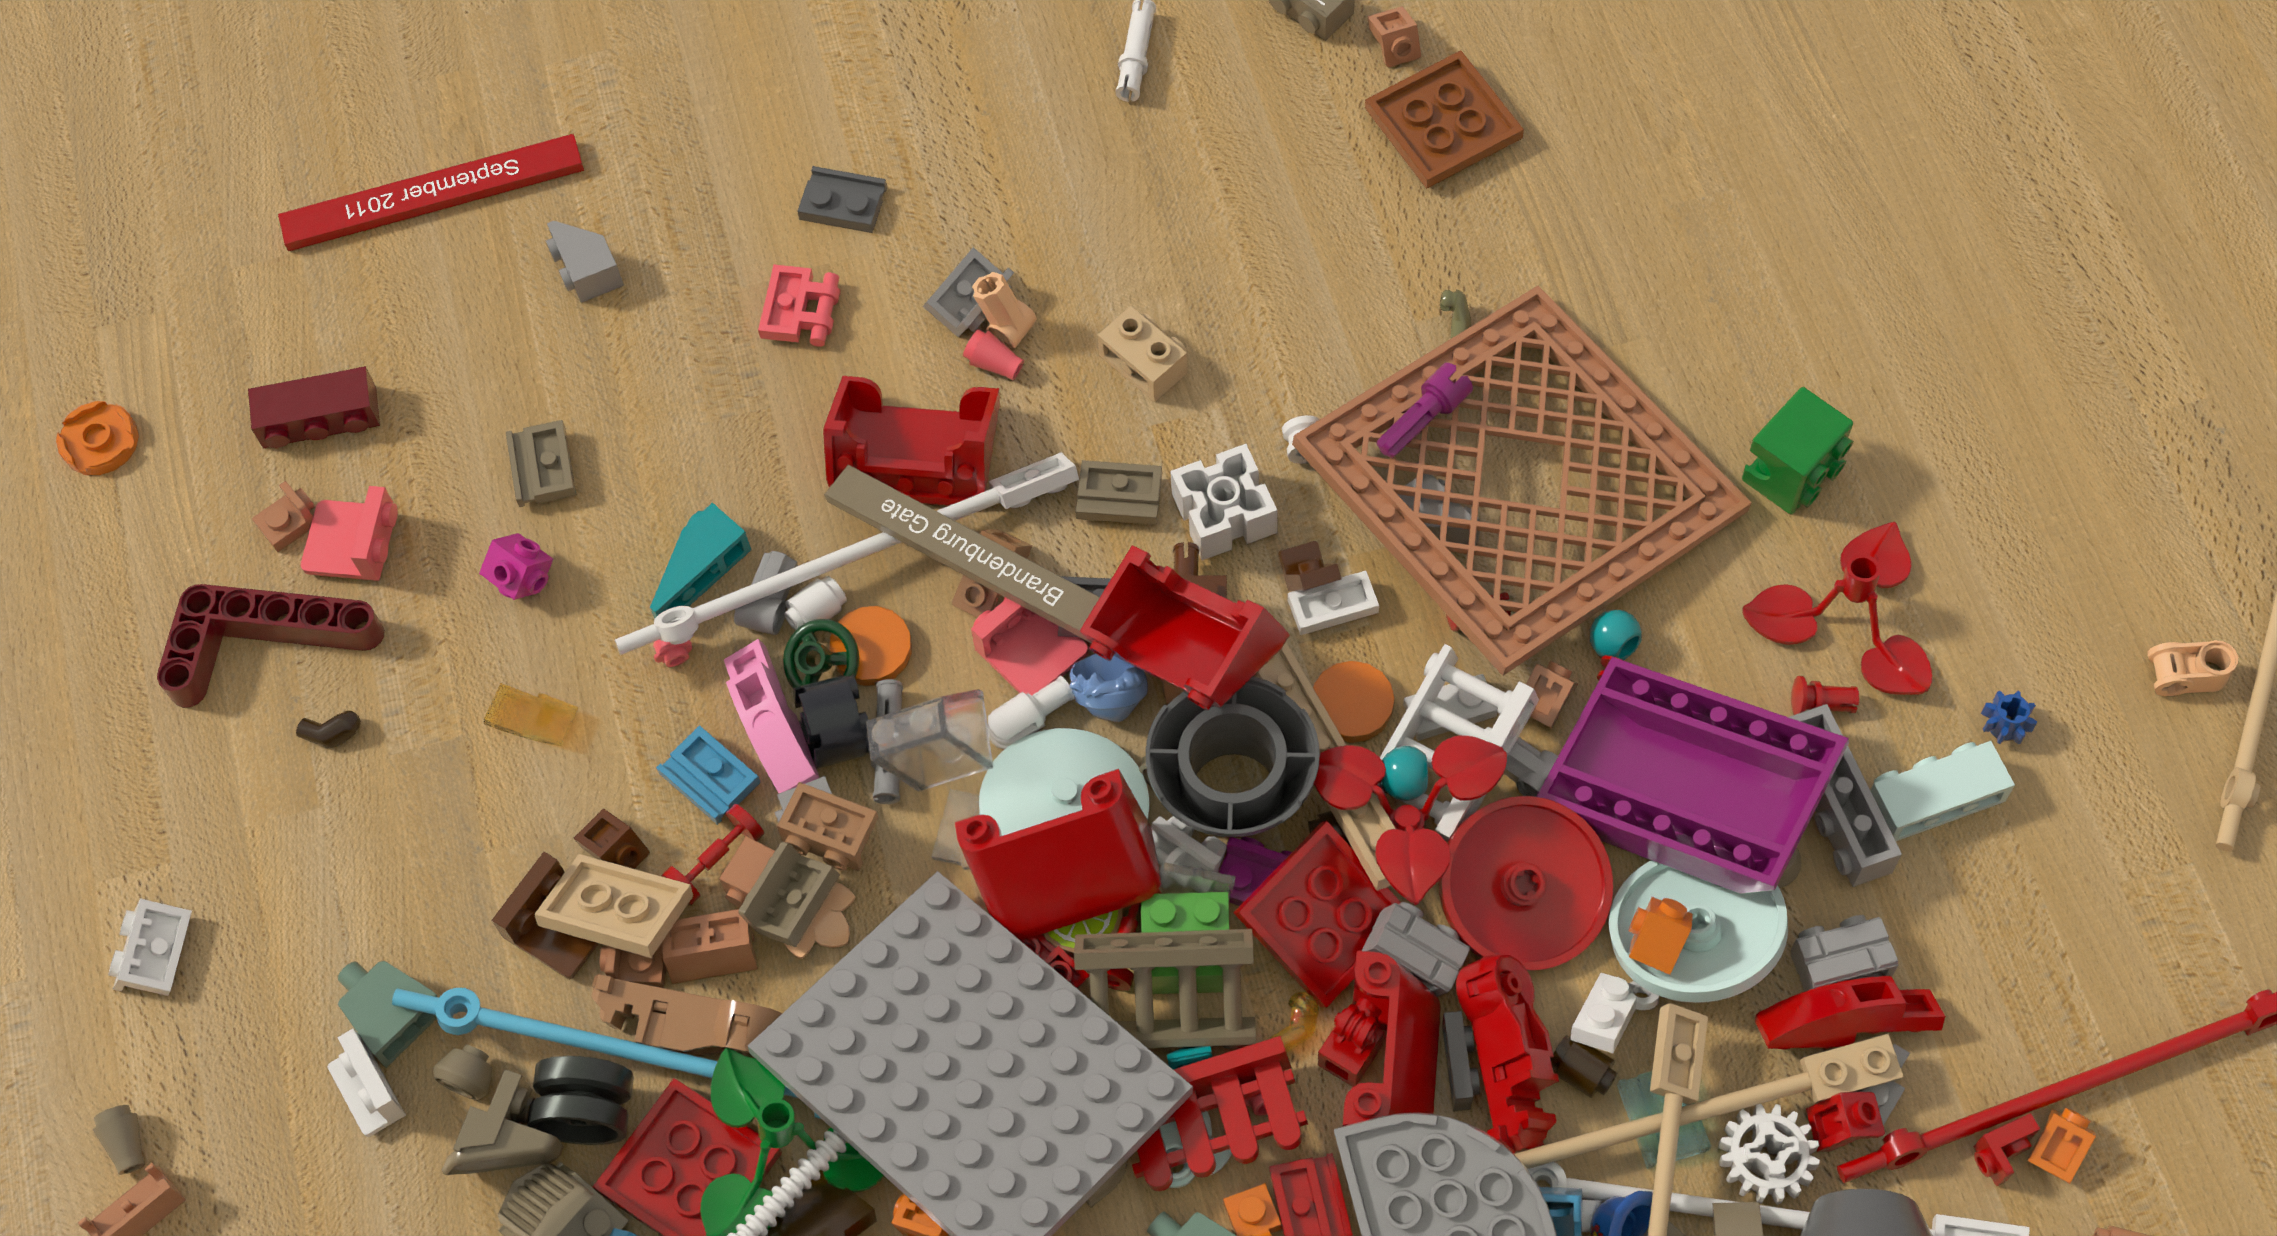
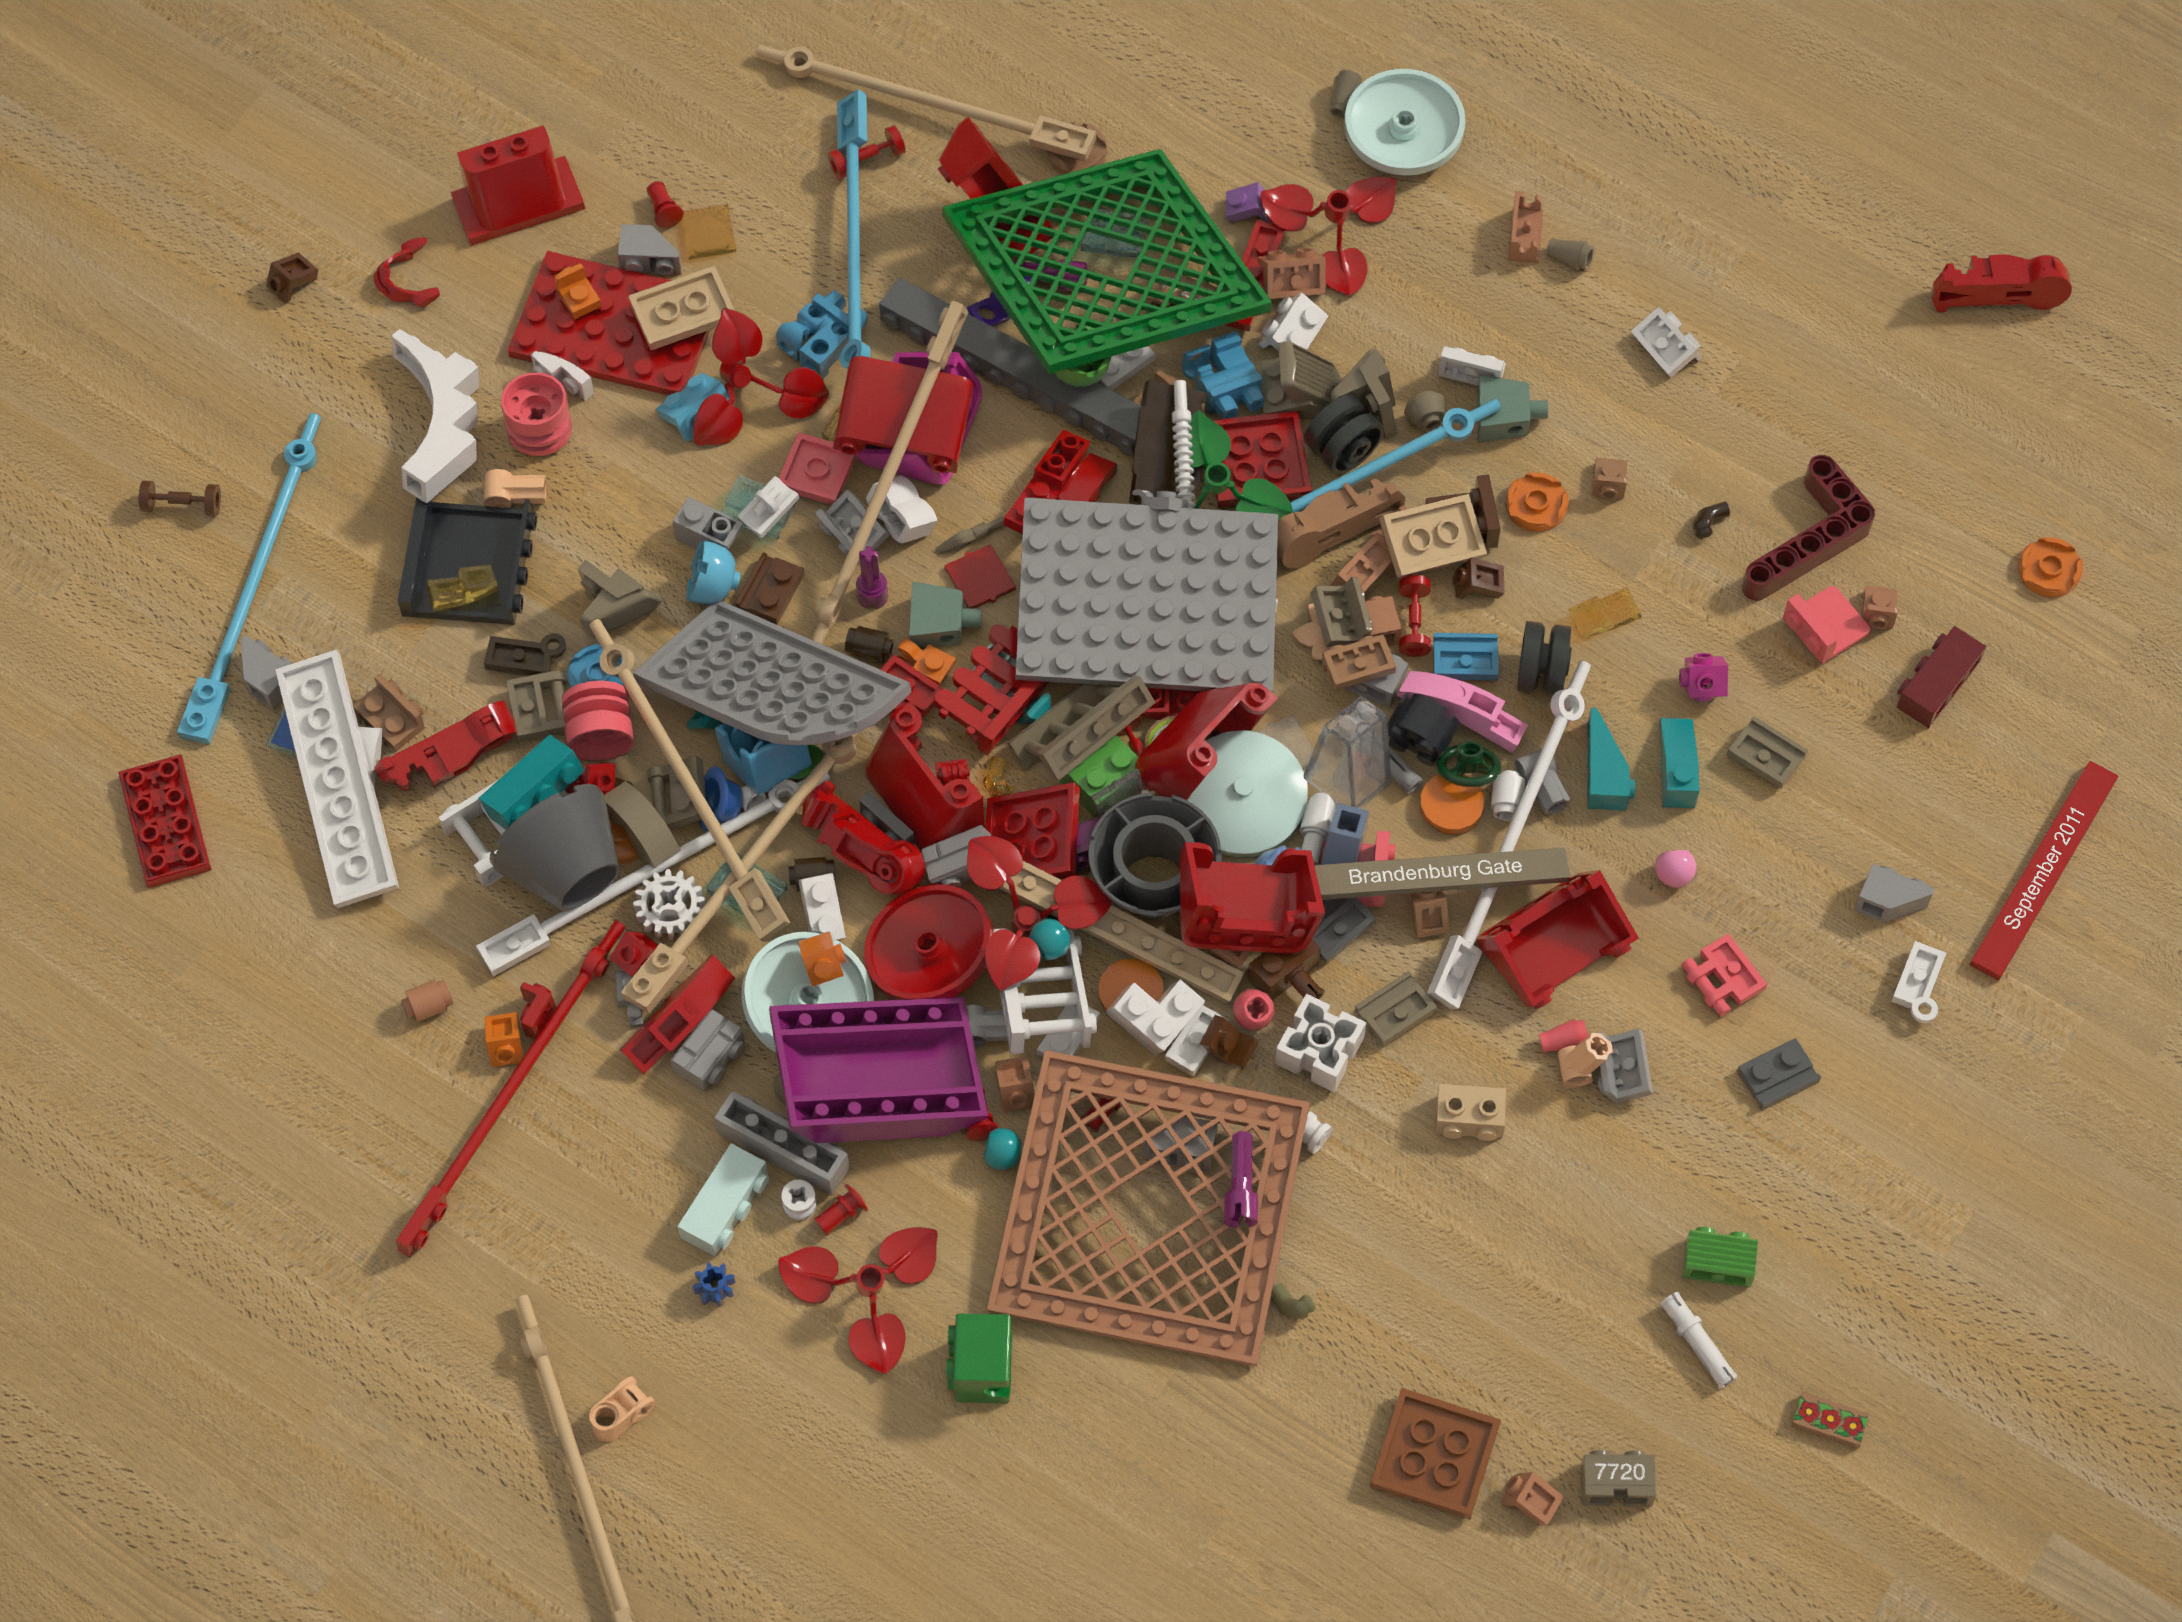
camera: 135 degrees right, 0 degrees up
(371, 850) = (1610, 478): none -> medium nougat bracket
(465, 887) = (1536, 502): none -> orange tile
(626, 515) = (1679, 763): none -> teal slope
(644, 178) = (1918, 981): none -> white hinge
(645, 692) = (1544, 658): none -> pearl dark grey wheel
(738, 420) = (1675, 868): none -> bright pink piece
(855, 1158) = (1164, 501): none -> light grey plate
(1020, 661) = (1345, 835): none -> sand blue slope
(1052, 91) = (1720, 1257): none -> bright green brick
(1255, 581) = (1253, 1009): none -> coral piece
(1355, 634) = (1151, 1021): none -> white brick
(1862, 748) = (800, 1207): none -> white wheel

